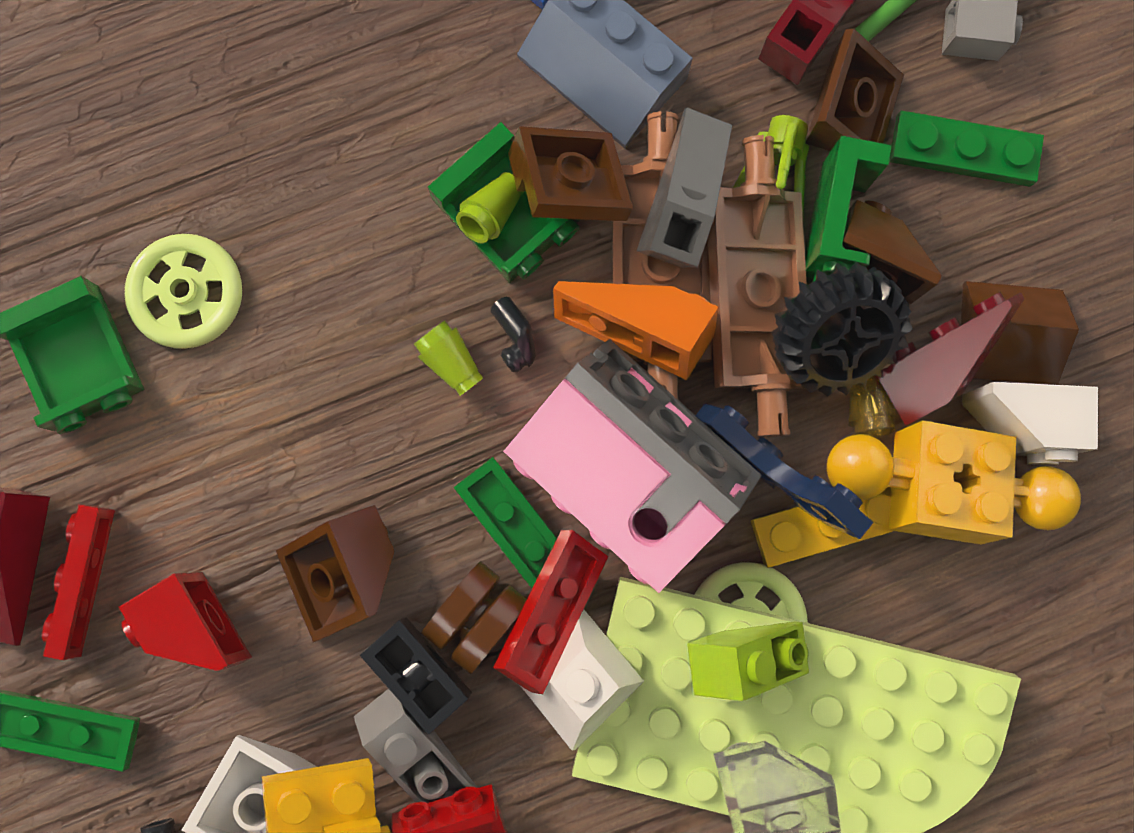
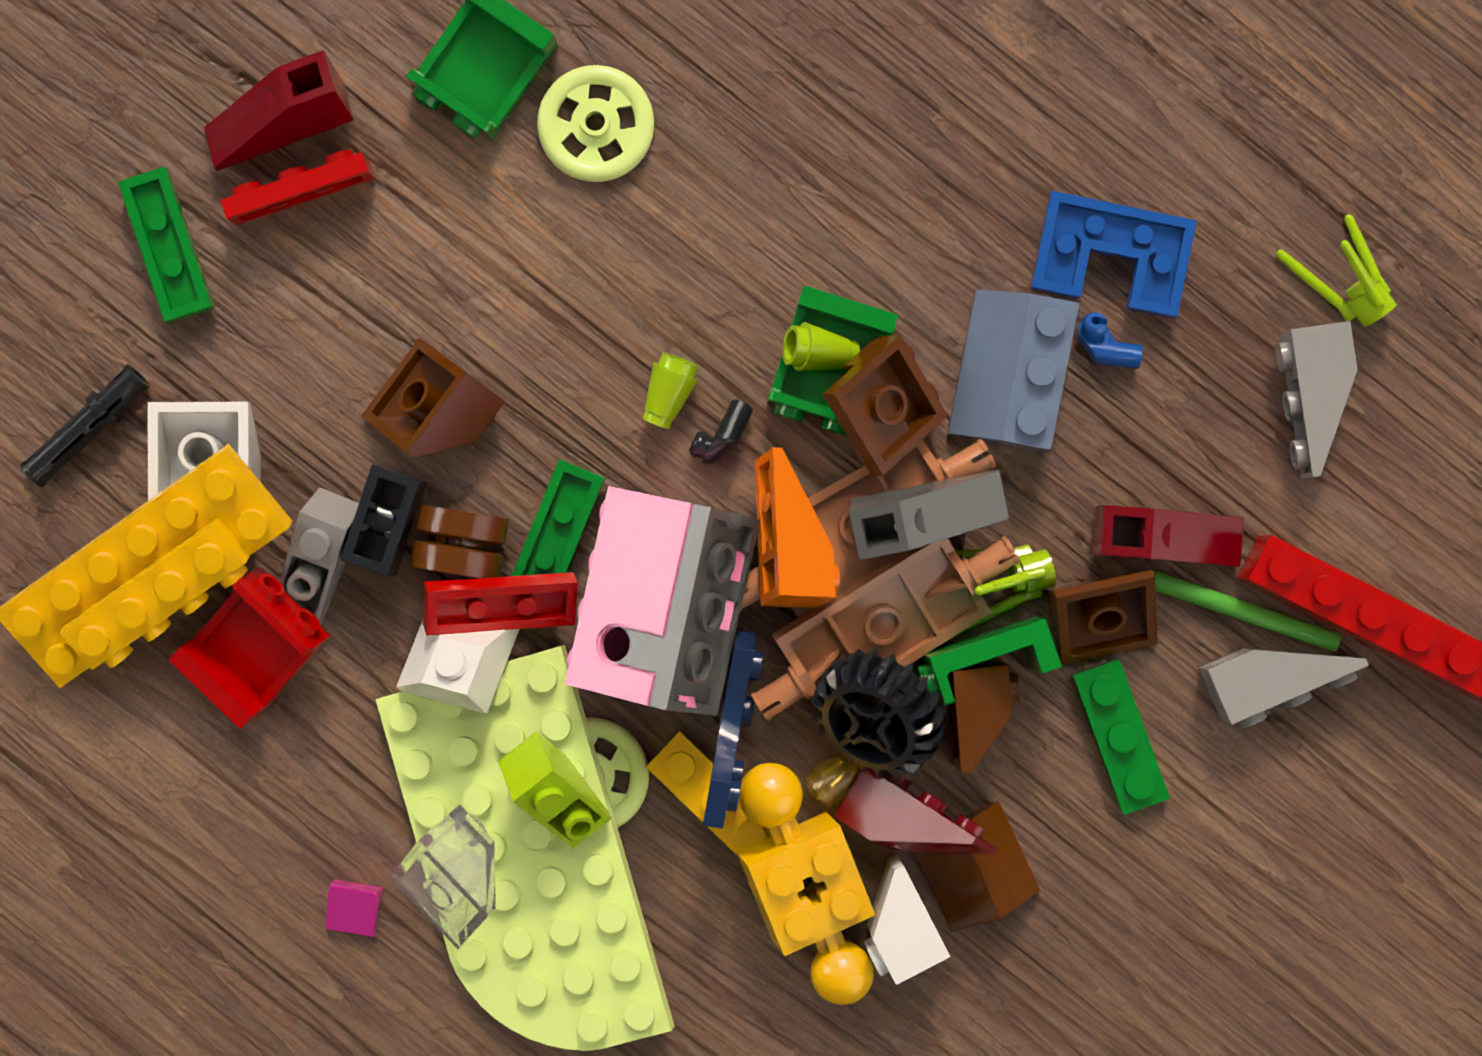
camera: 65 degrees right, 5 degrees up
(184, 623) = (313, 303): red slope -> none

